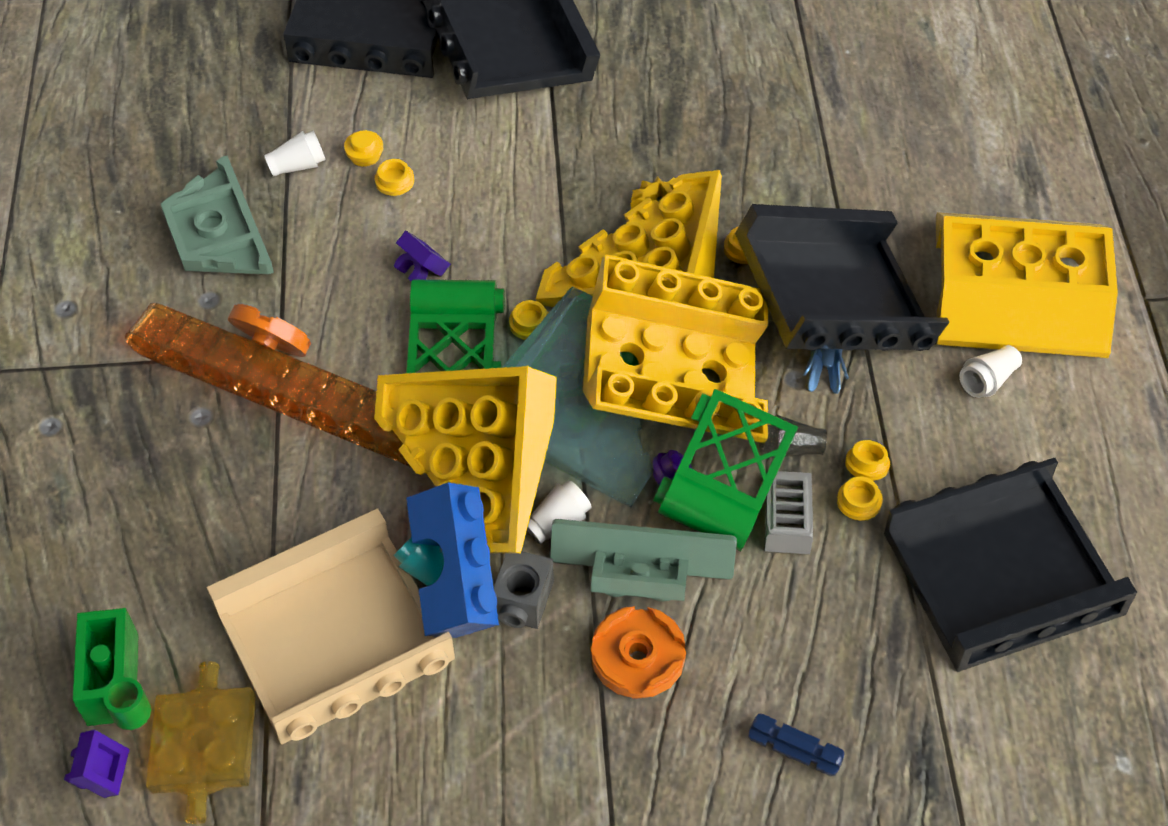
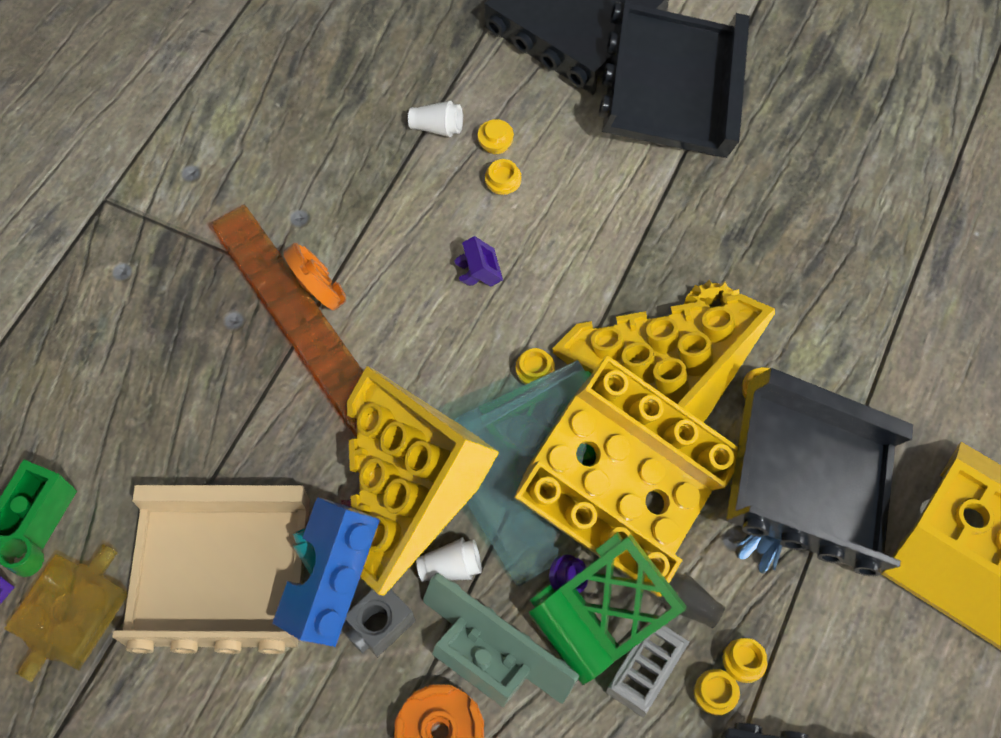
camera: 30 degrees right, 10 degrees up
(215, 225) = (337, 154): sand green wing -> none
(458, 307) = (479, 323): green piece -> none
(986, 373) = (911, 630): white cone -> none

